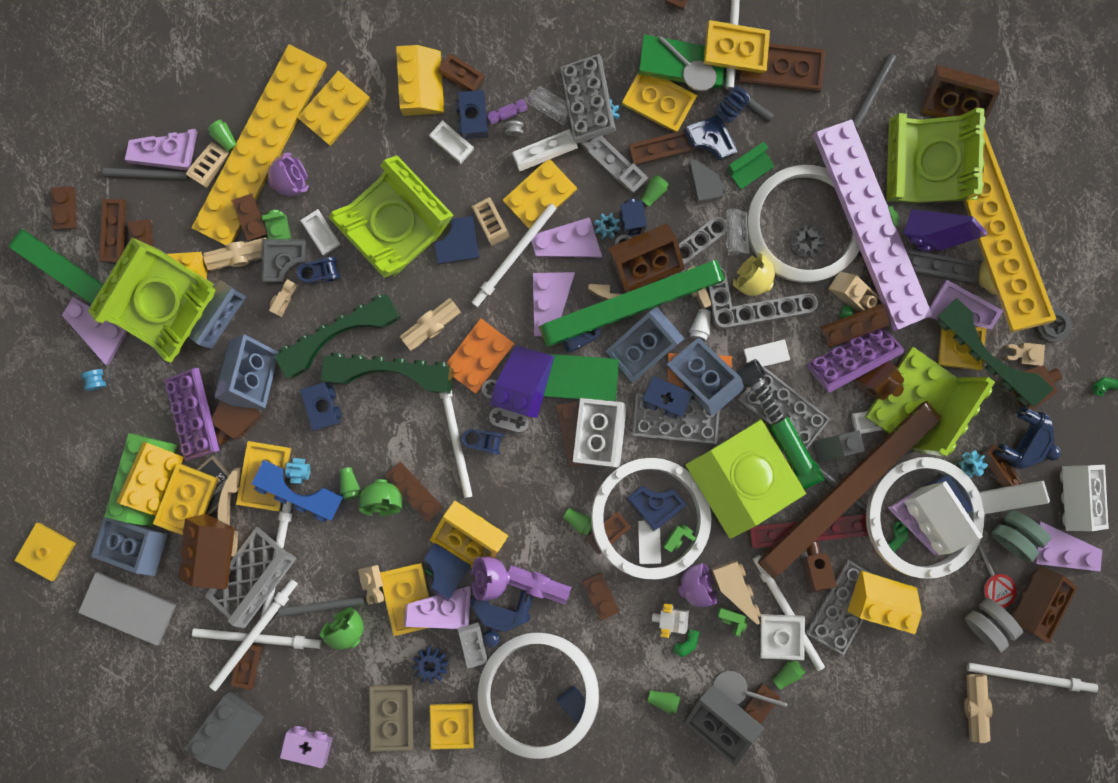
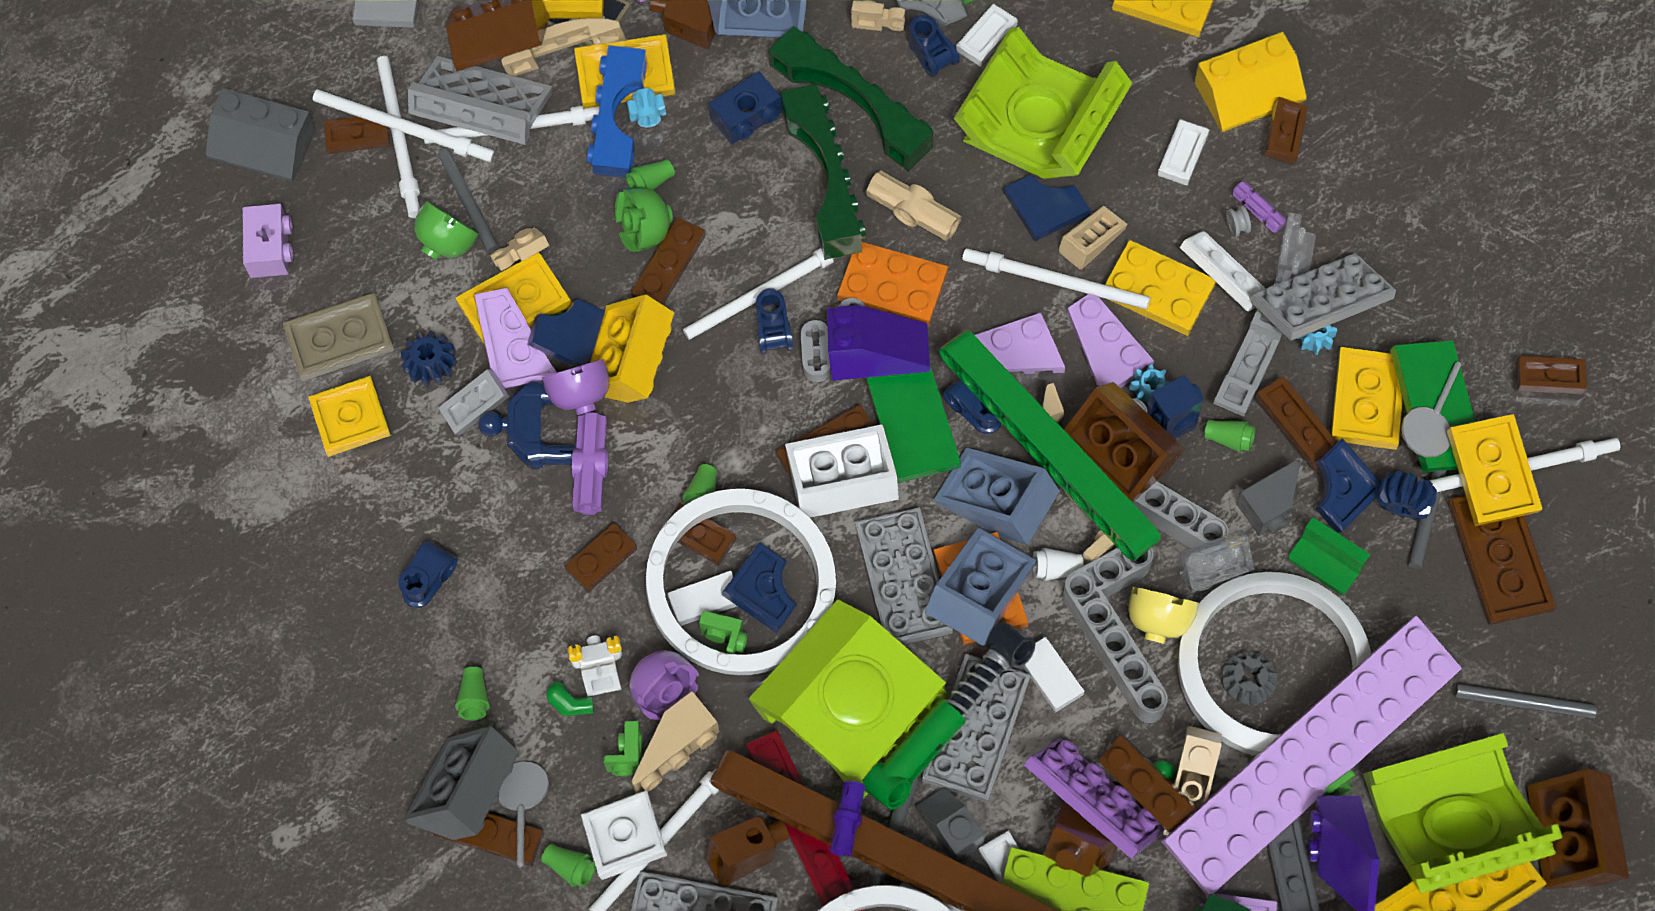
camera: 75 degrees right, 20 degrees down
(474, 102) = (1223, 176): dark blue brick -> none
(591, 705) = (429, 576): white piece -> none
(658, 388) = (930, 521): dark blue brick -> none
(832, 507) = (847, 818): none -> dark purple pin

